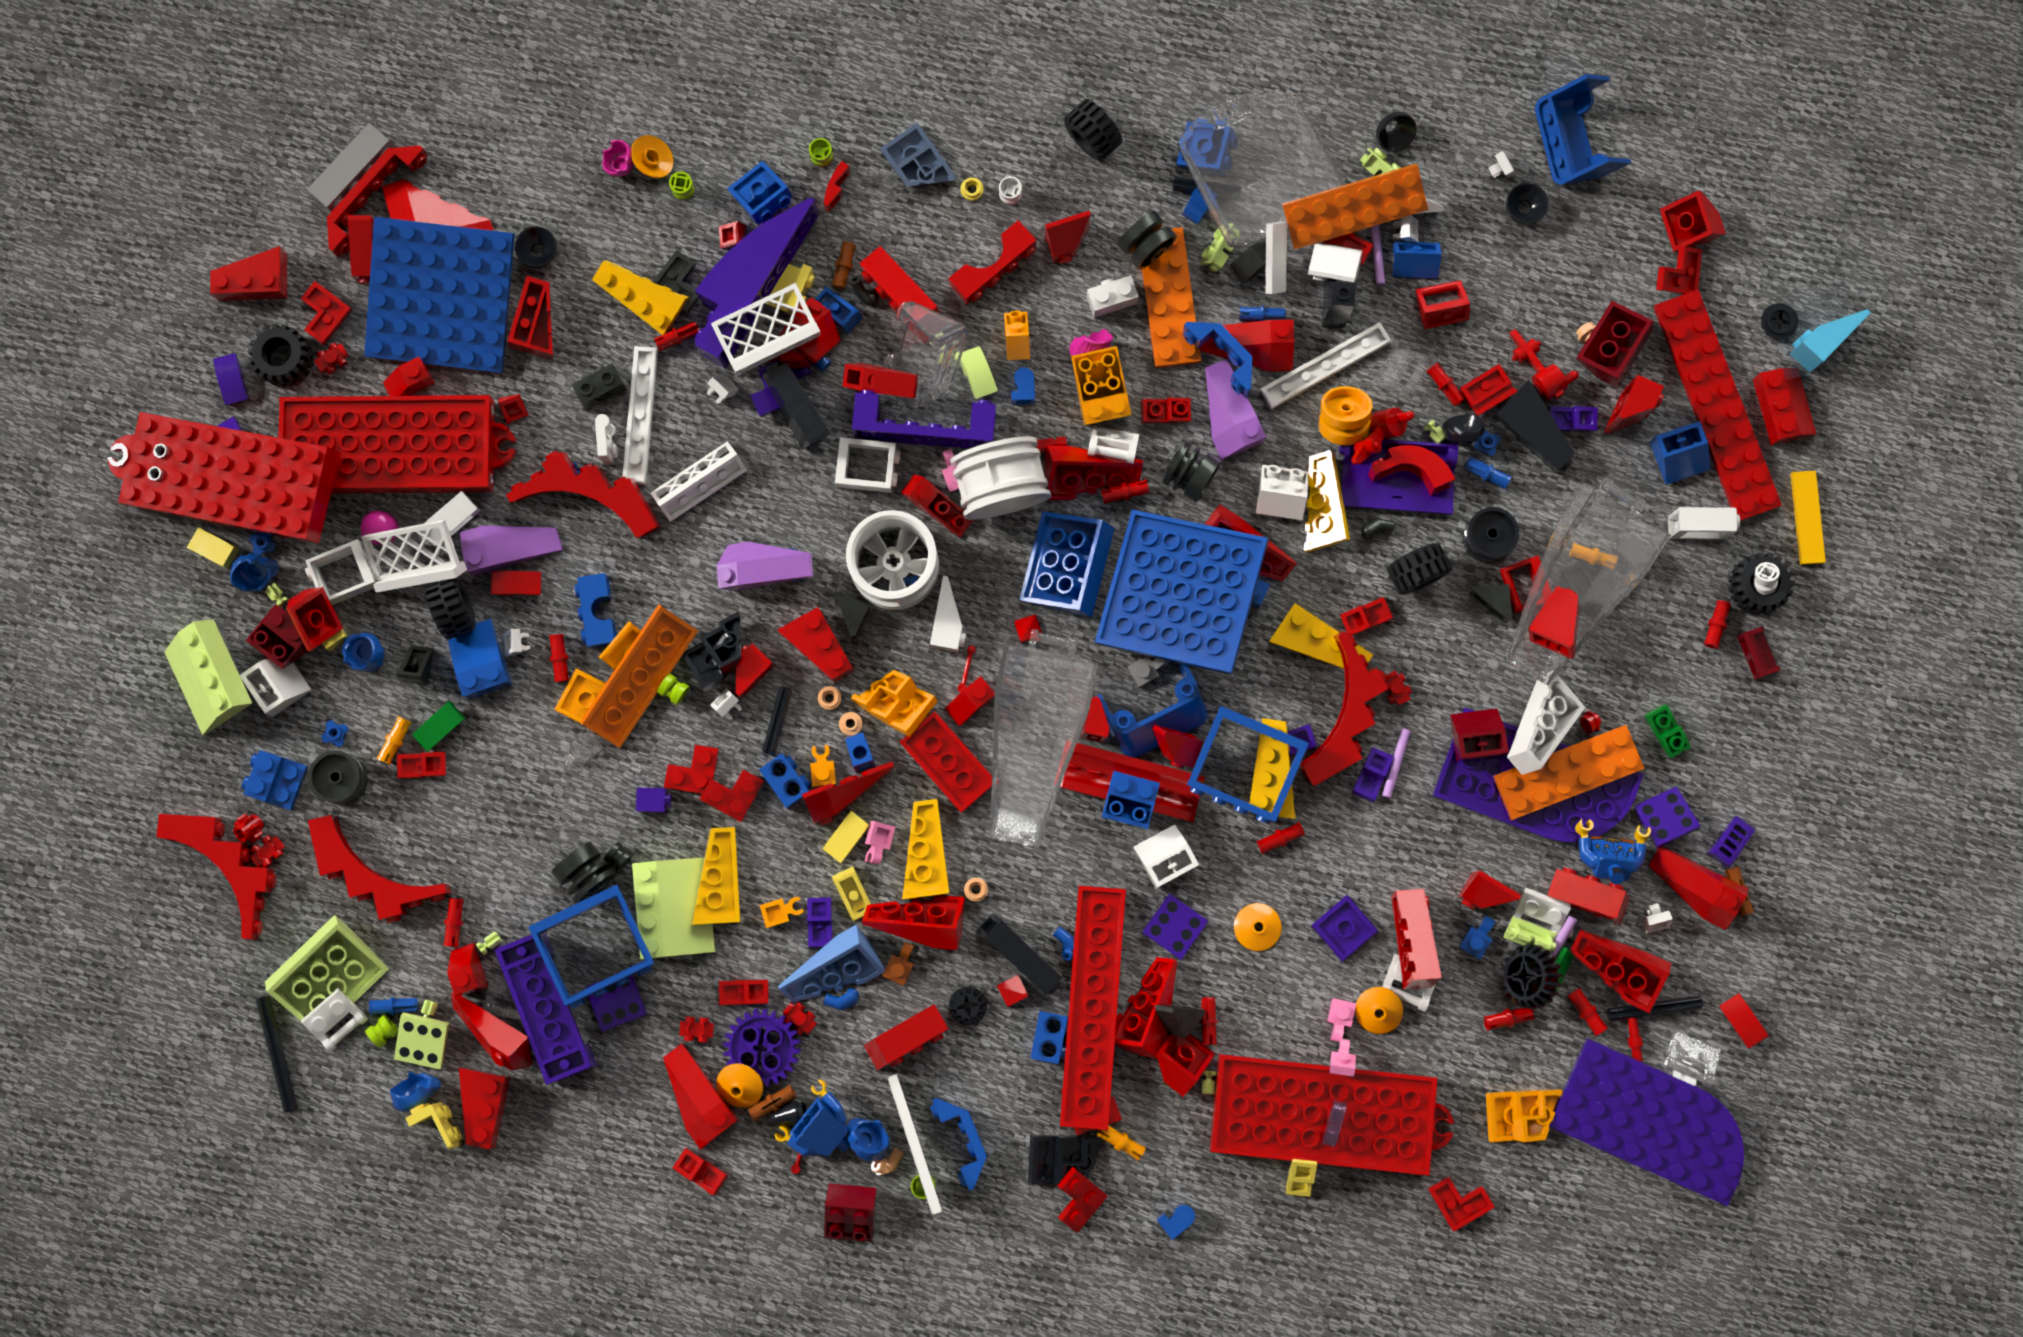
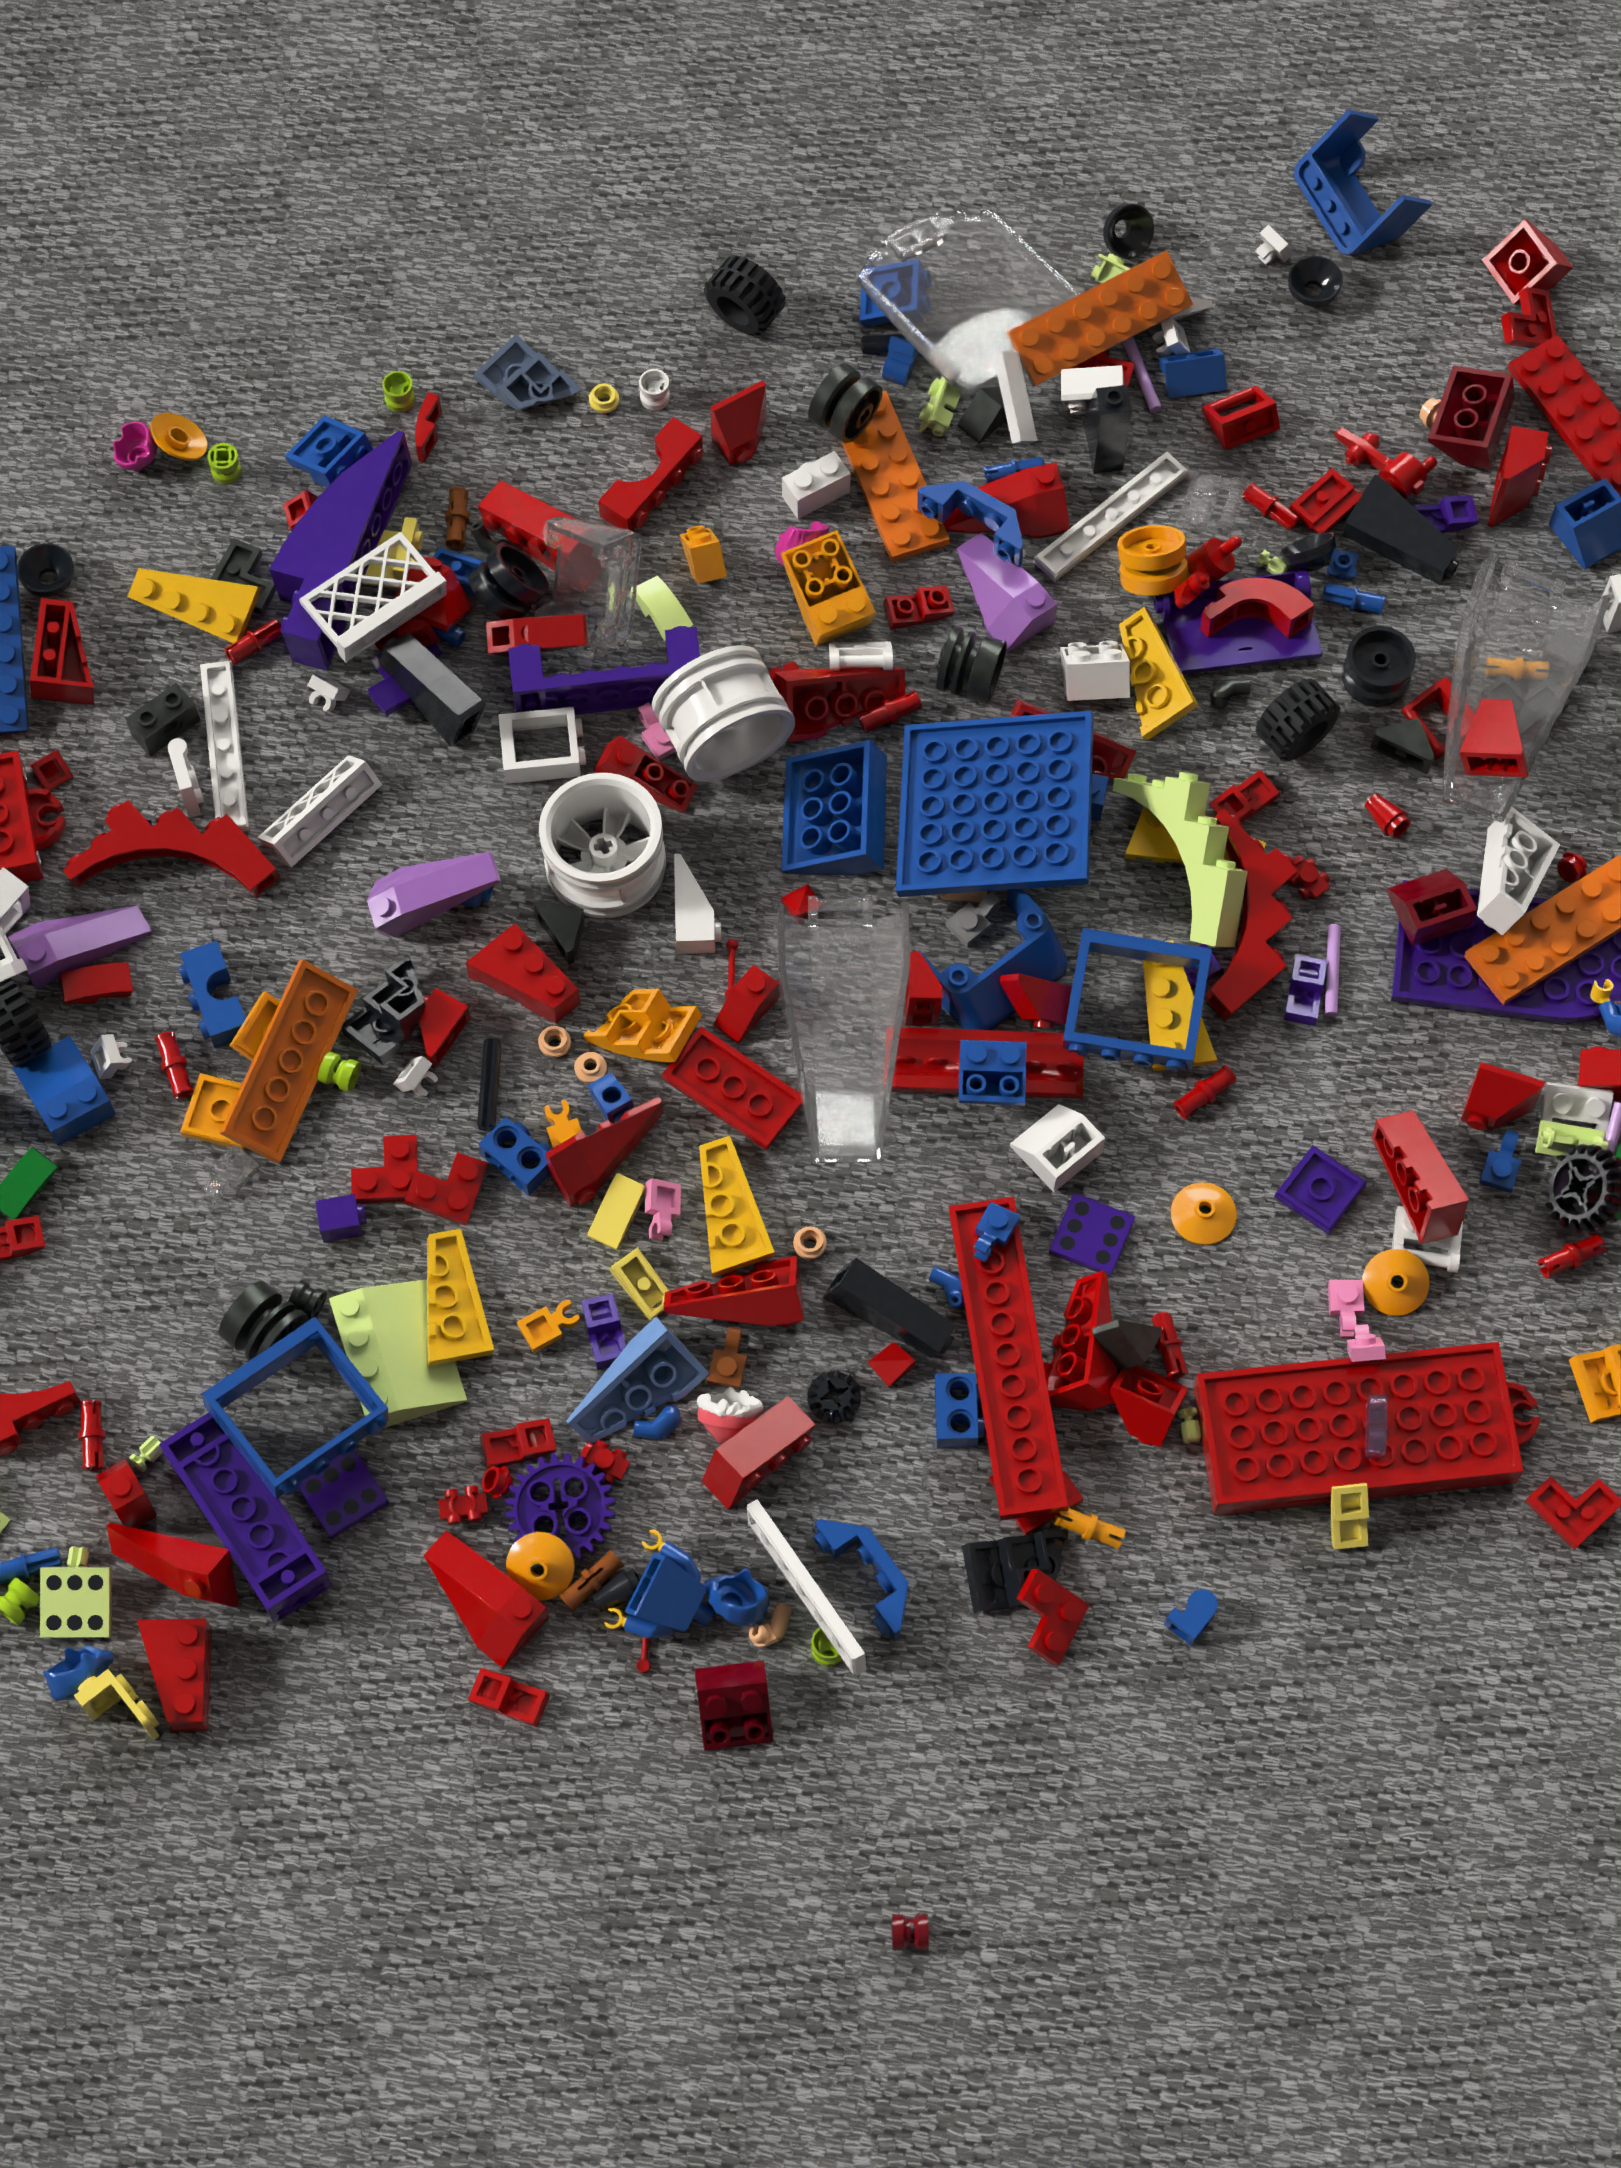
camera: 15 degrees left, 15 degrees down
(722, 1017) = (497, 1481): none -> red plate
(868, 334) = (508, 582): none -> black wheel
(891, 1005) = (727, 1412): none -> hair
(1025, 384) = (727, 614): blue leg -> none
(1107, 912) = (994, 1228): none -> blue plate
(1323, 653) = (1214, 882): none -> yellowish green arch
(1467, 653) = (1389, 817): none -> red cone

